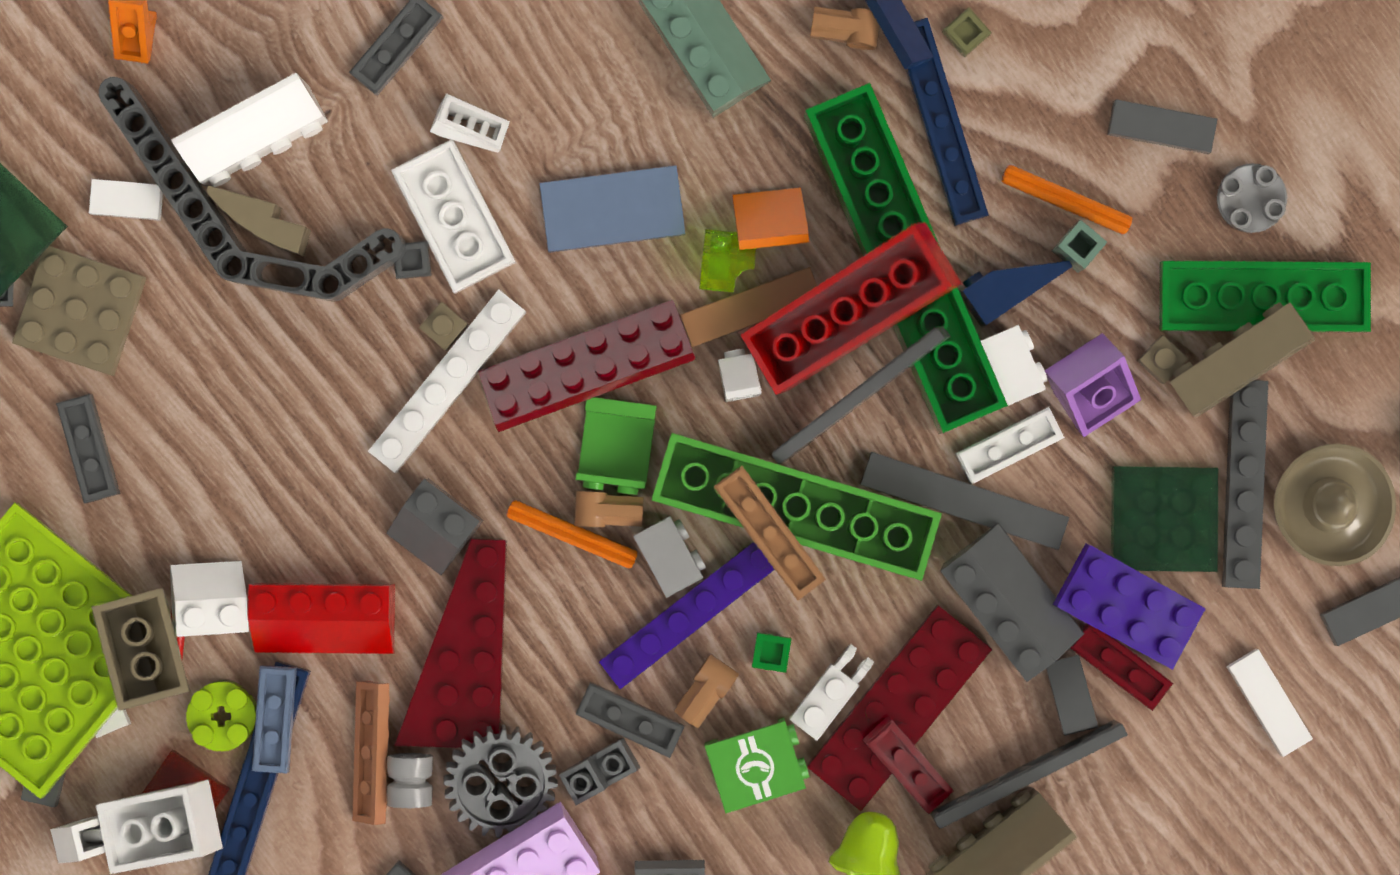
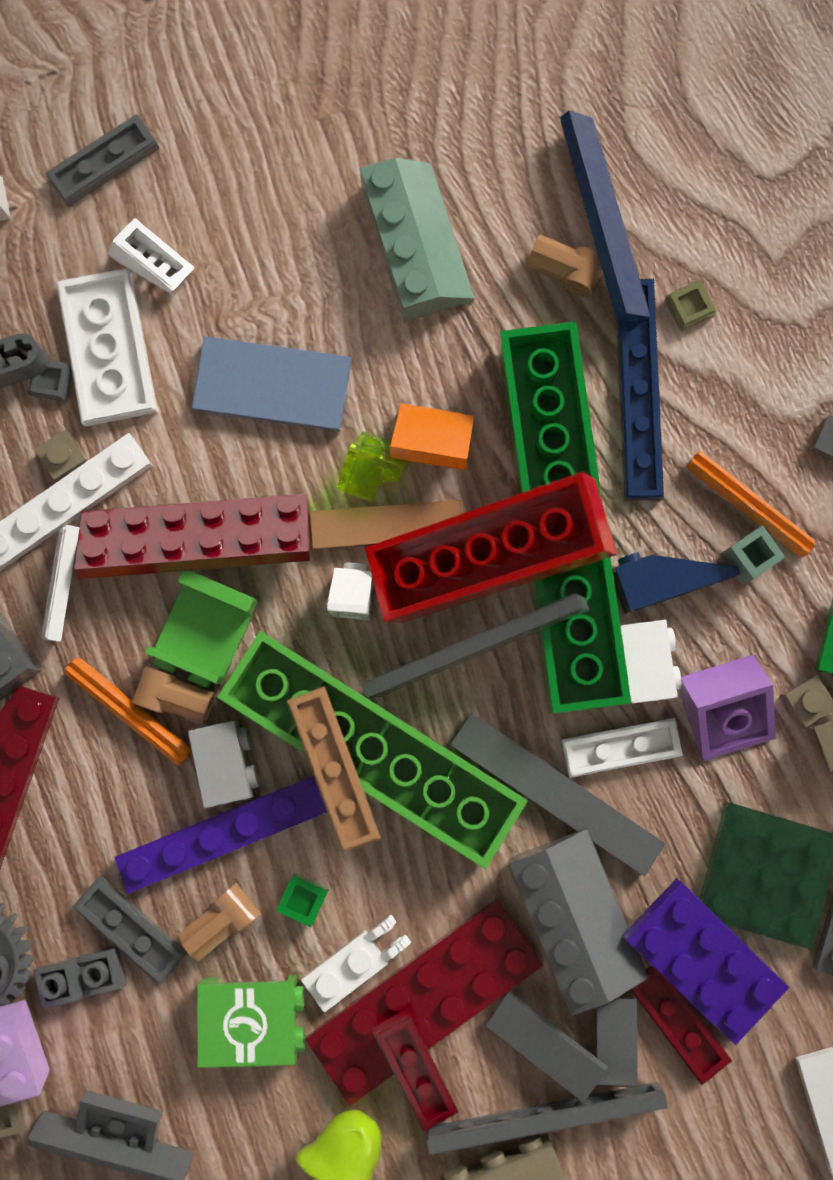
camera: 20 degrees right, 5 degrees down
(480, 440) = (60, 583): none -> white tile
(1013, 714) = (547, 1046): none -> dark grey tile

